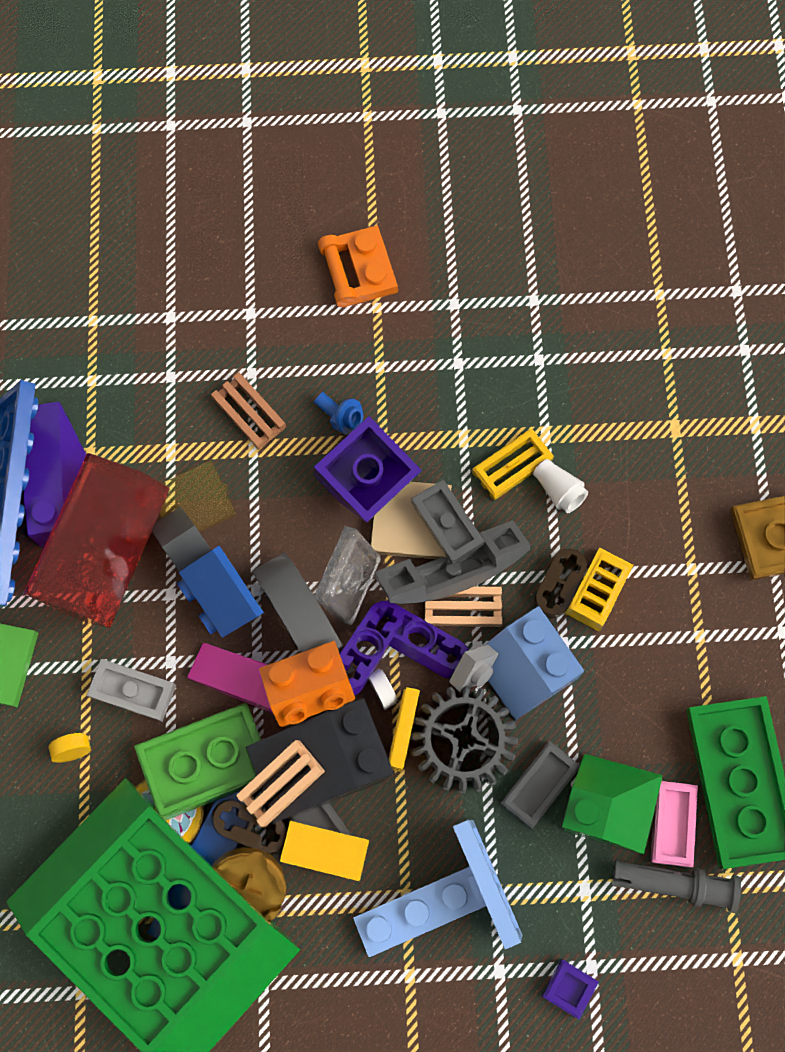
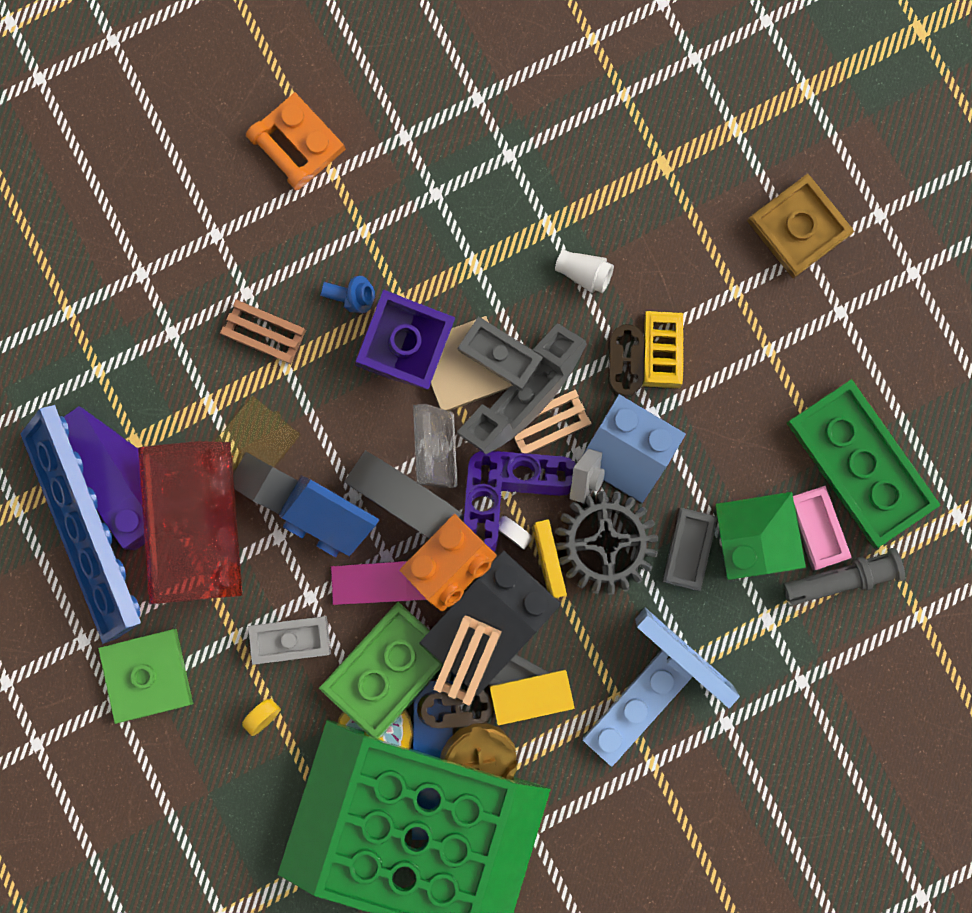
camera: 25 degrees left, 10 degrees up
(488, 481) = (516, 296): yellow tile -> none
(570, 989) = (792, 709): dark purple tile -> none

